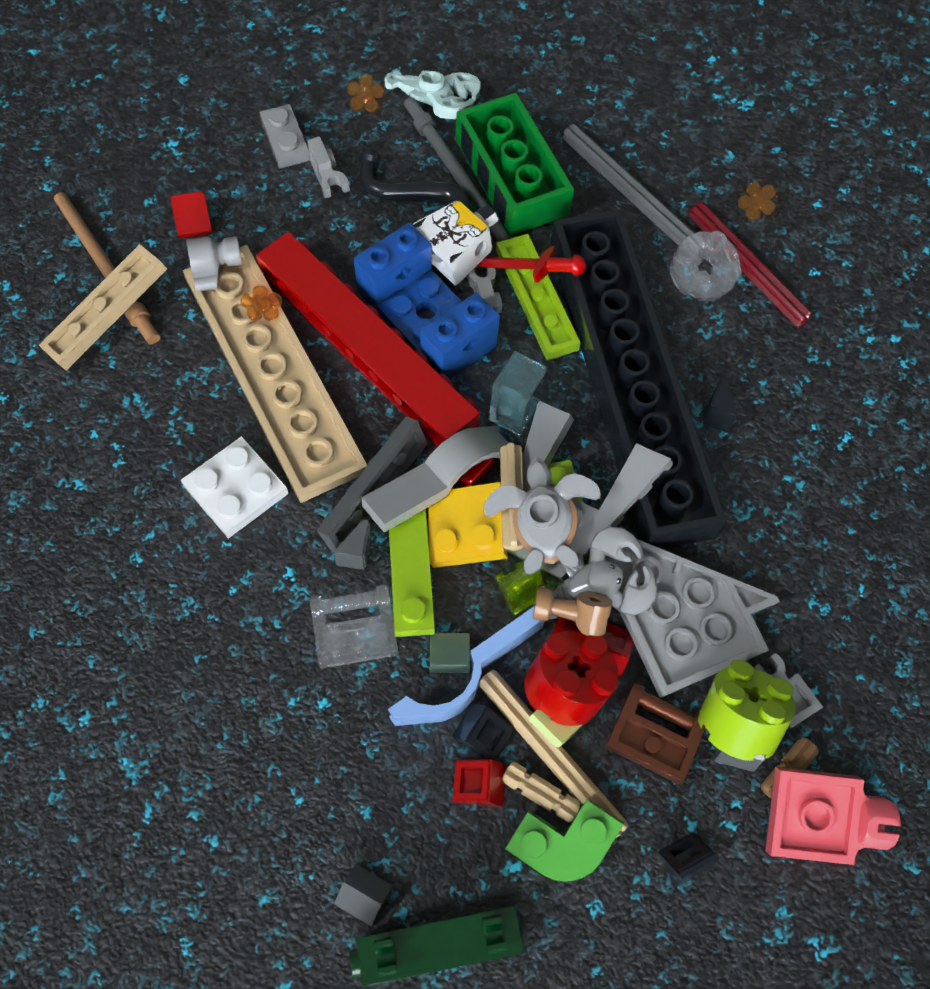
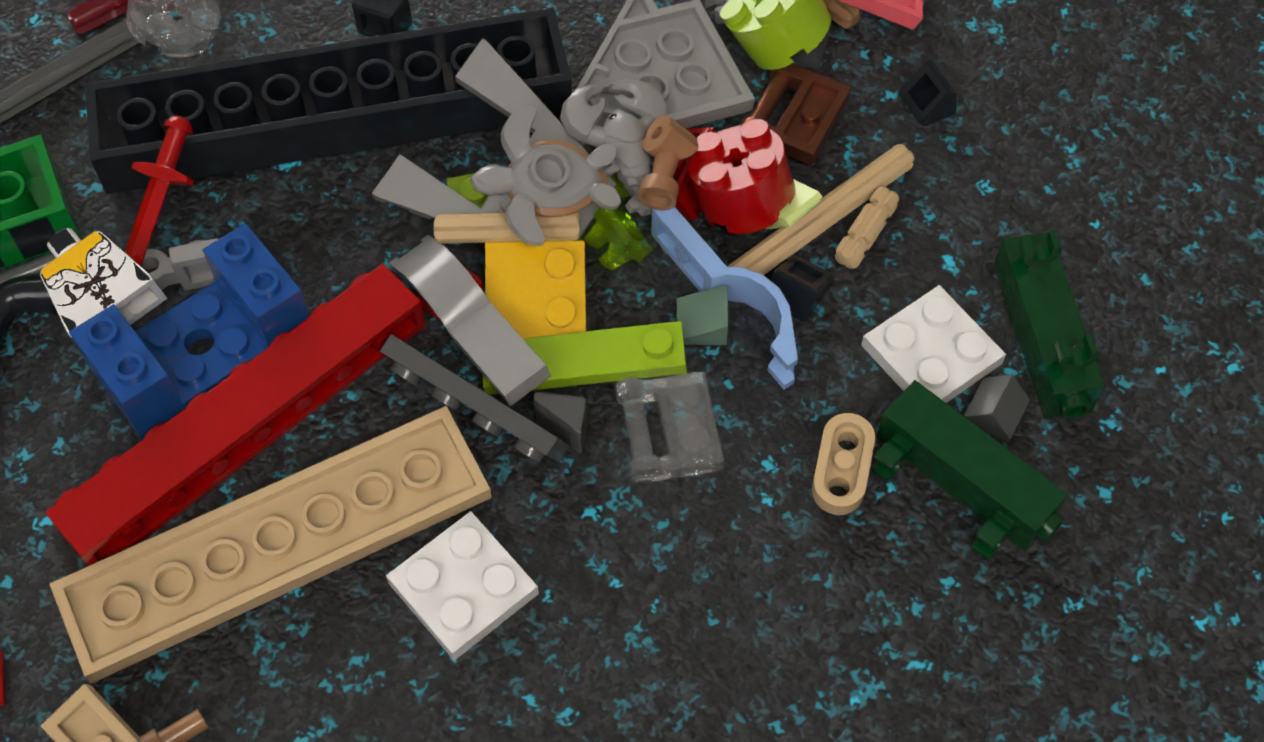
camera: 85 degrees left, 5 degrees down
(207, 256) = (77, 629): light grey piece -> none
(261, 304) = (168, 550): clear orange plant -> none
(300, 864) = (971, 468): none -> dark green brick
(313, 757) = (841, 466): none -> tan plate
(421, 843) = (934, 346): none -> white plate
(479, 782) = (859, 292): red slope -> none
(513, 392) = (357, 218): clear light blue panel -> none
(539, 301) = (203, 205): lime plate -> none
(568, 854) = (934, 198): bright green plate -> none

